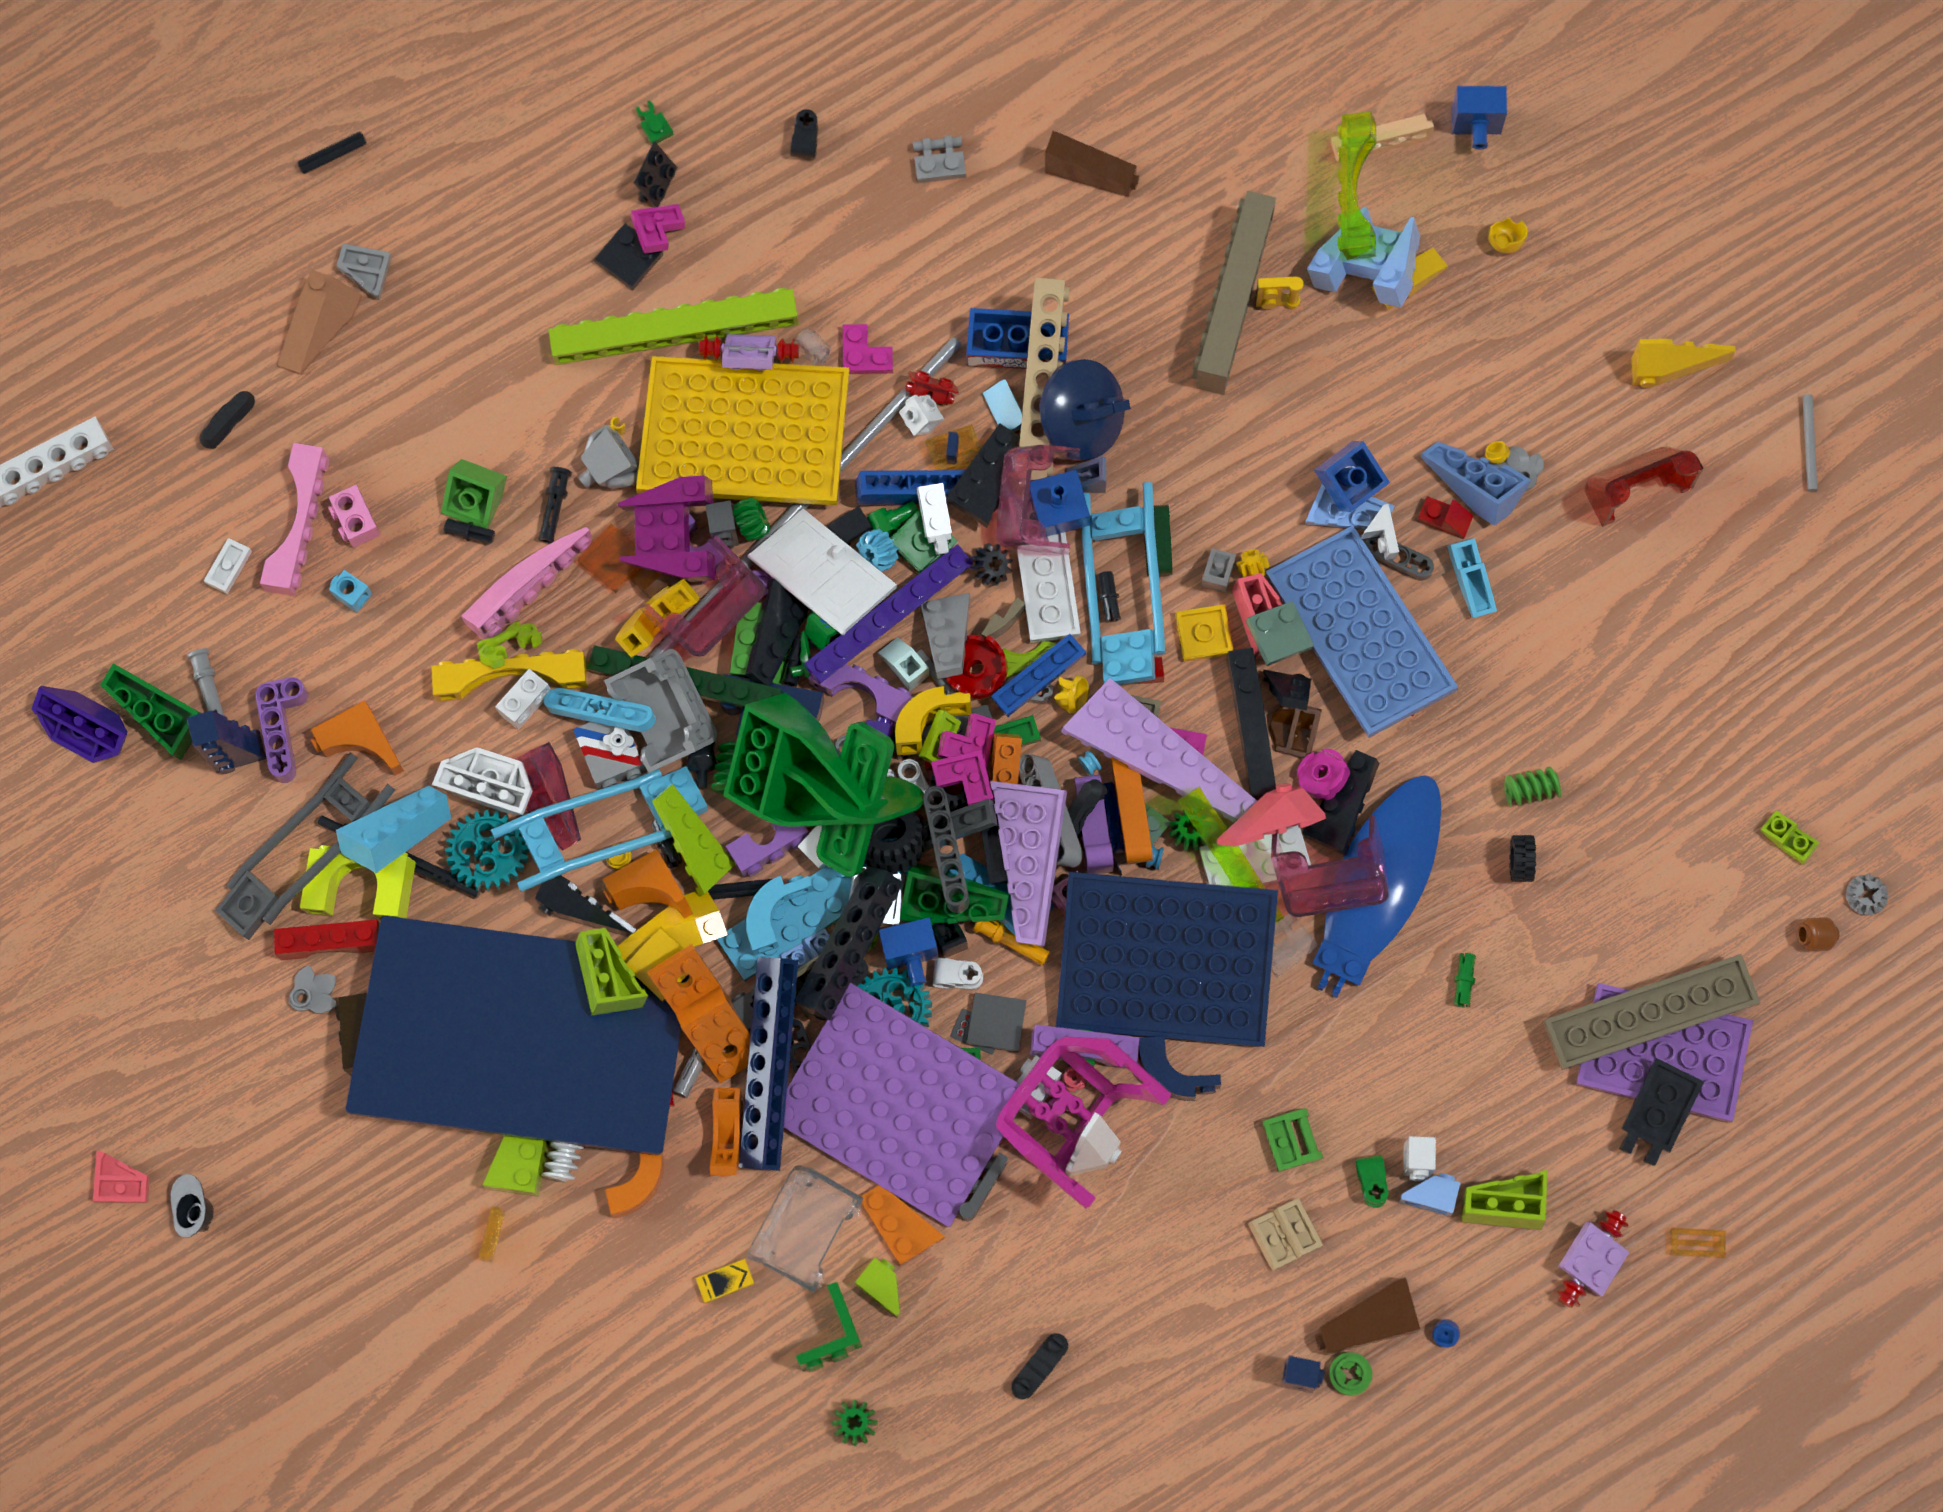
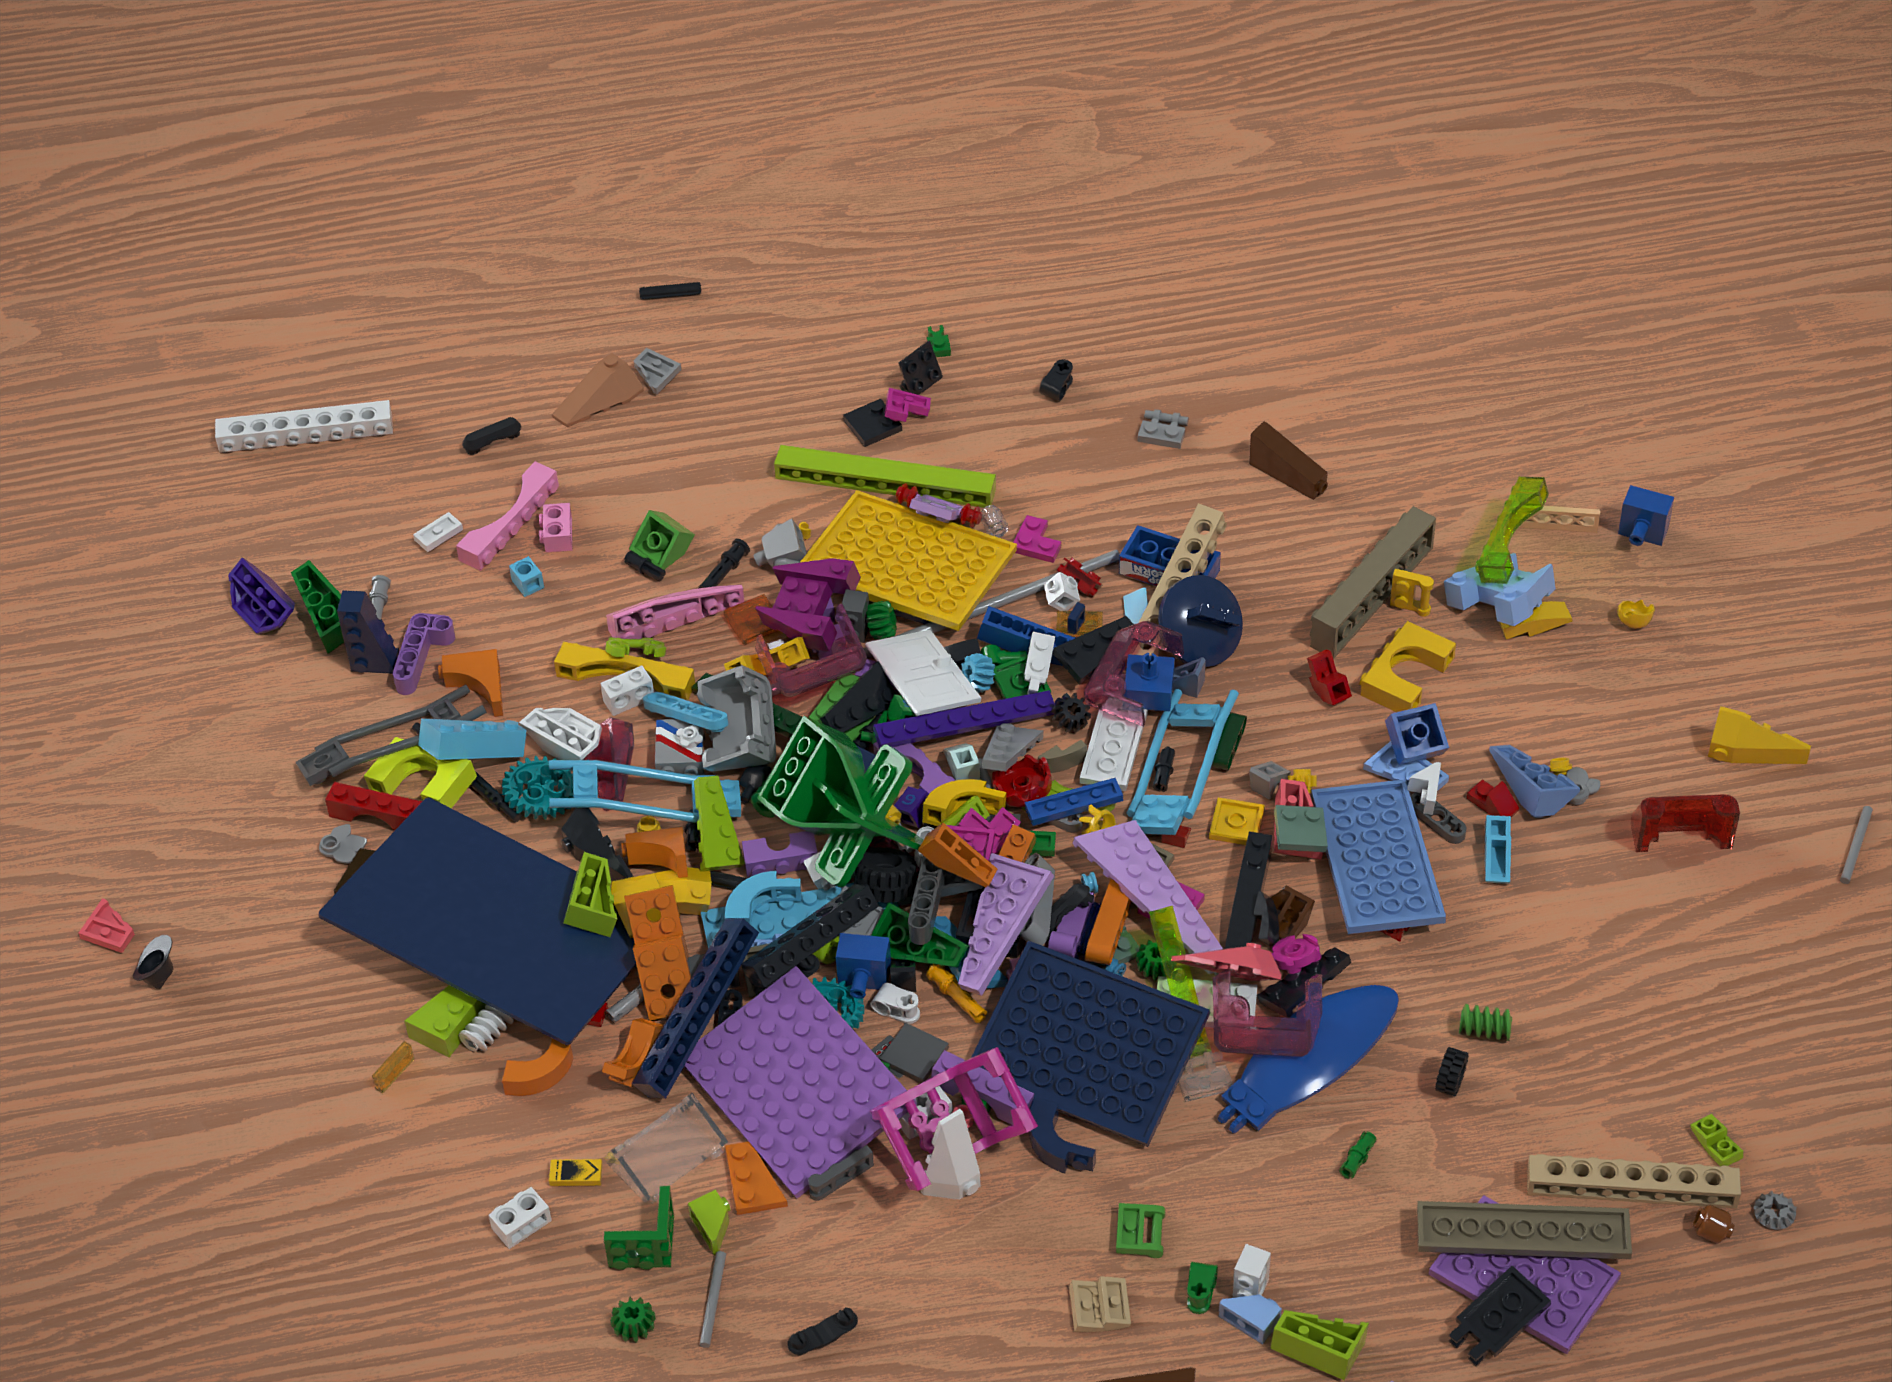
camera: 20 degrees right, 25 degrees down
(701, 1357) = (523, 1221): none -> white brick
(918, 1368) = (712, 1301): none -> light grey bar
(962, 806) = (956, 856): none -> orange slope
(1233, 432) = (1325, 680): none -> red brick
(1279, 737) = (1266, 911): none -> black slope
(1289, 689) = (1298, 882): black wing -> none
(1301, 353) = (1408, 644): none -> yellow arch
(1819, 894) = (1645, 1189): none -> tan brick

